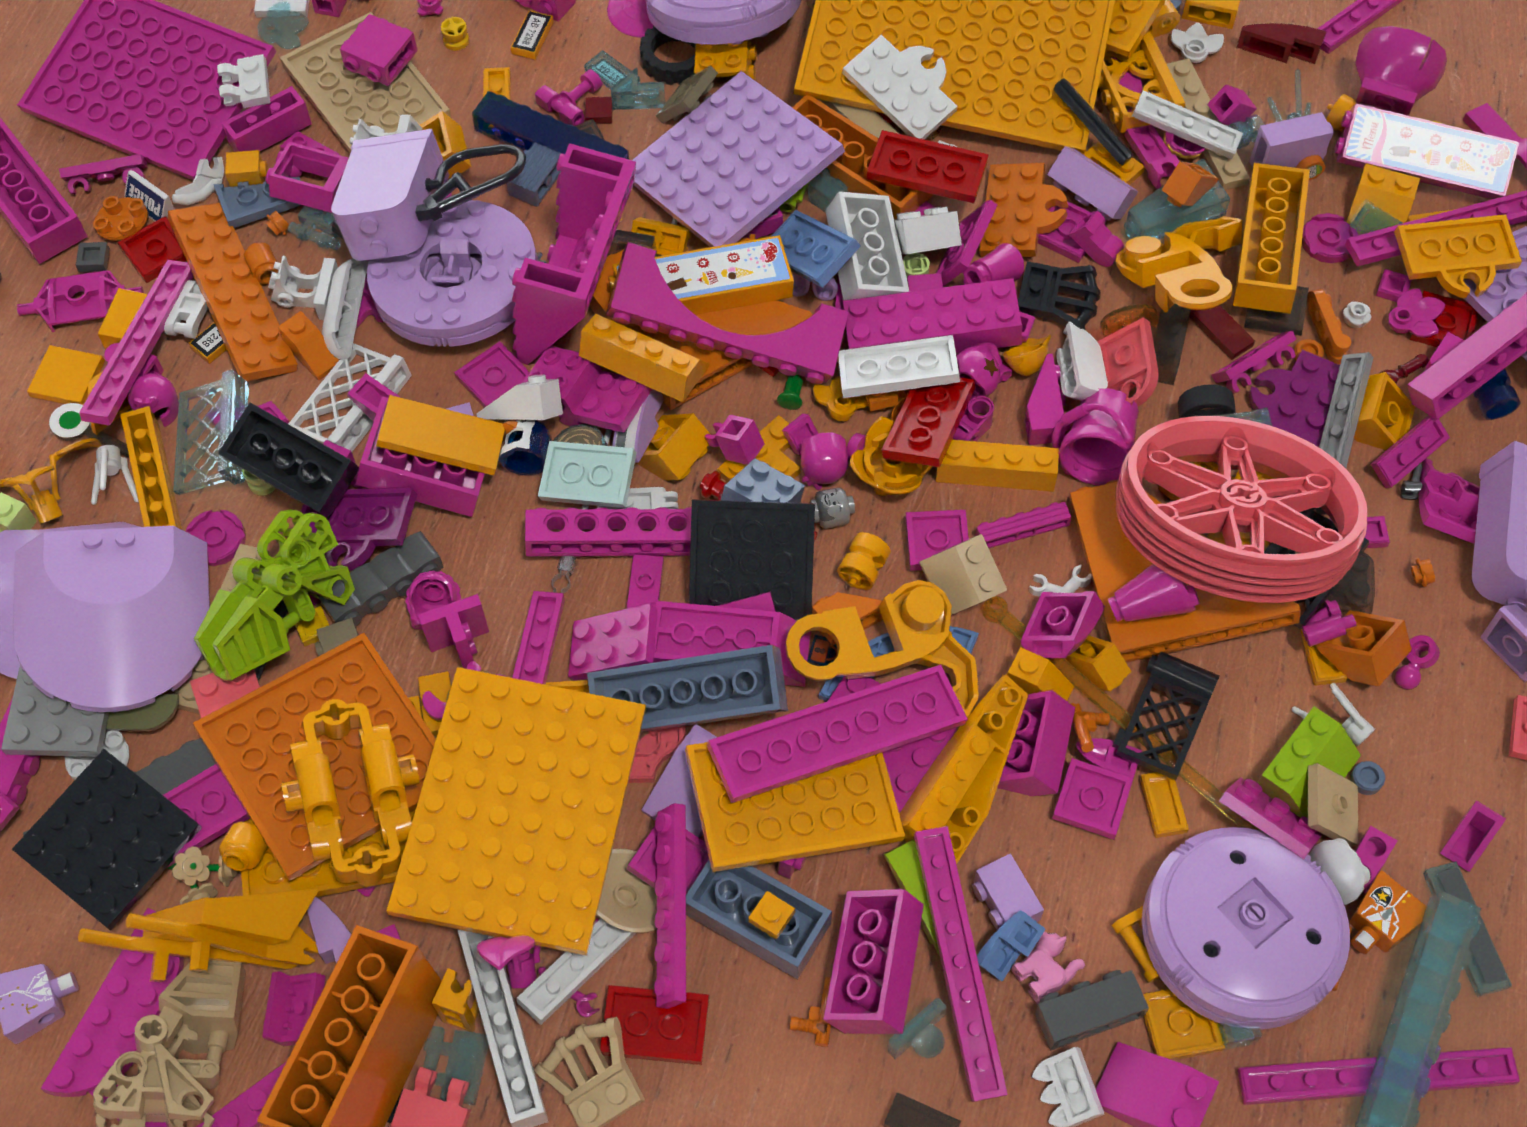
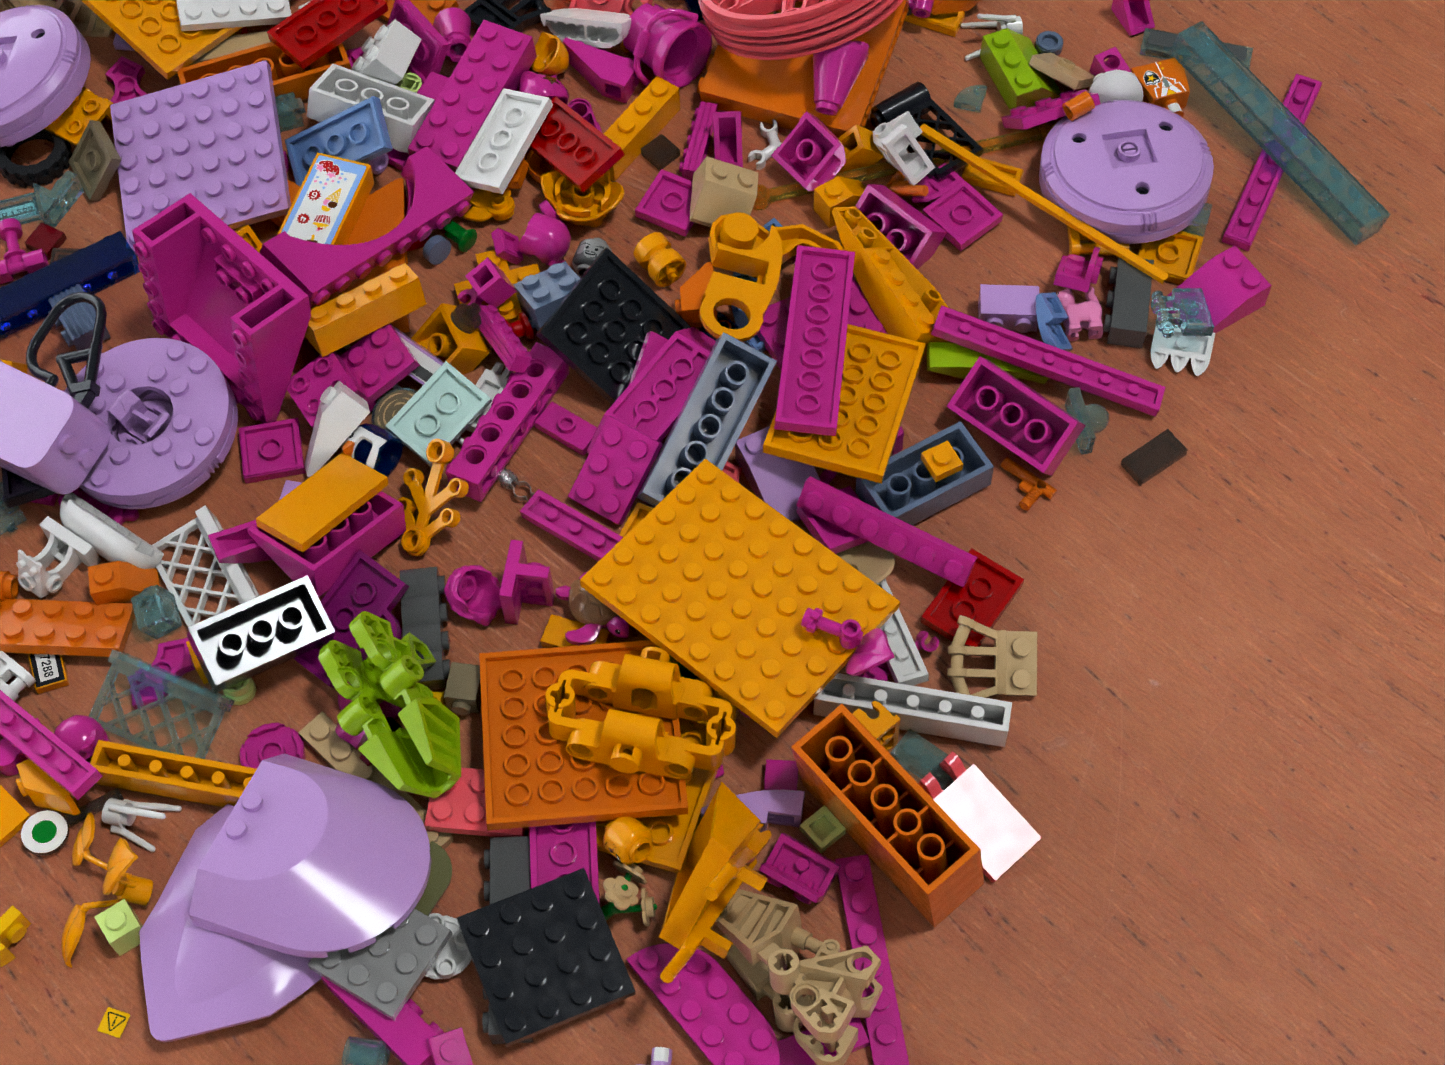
camera: 60 degrees left, 0 degrees up
(294, 381) = (156, 611): none -> clear light blue brick
(467, 528) = (418, 533): none -> light orange plant
(512, 917) = (848, 631): none -> dark pink bar
(690, 480) = (503, 339): none -> dark pink piece
(692, 441) = (466, 317): none -> clear smoke tile
(763, 383) = (436, 249): none -> sand blue tile
(782, 76) = (126, 78): none -> dark pink tile
(990, 500) = (660, 152): none -> clear smoke tile
(1036, 548) = (728, 137): none -> dark pink slope
(1089, 940) = (1078, 273): none -> dark pink bracket
(1103, 1076) = (1190, 312): none -> clear light blue plate
(1115, 693) = (892, 142): none -> white tile
(1145, 869) = (1044, 204): none -> light orange piece
(1245, 738) = (971, 98): none -> clear light blue tile
(1277, 837) = (1078, 106): none -> orange hinge

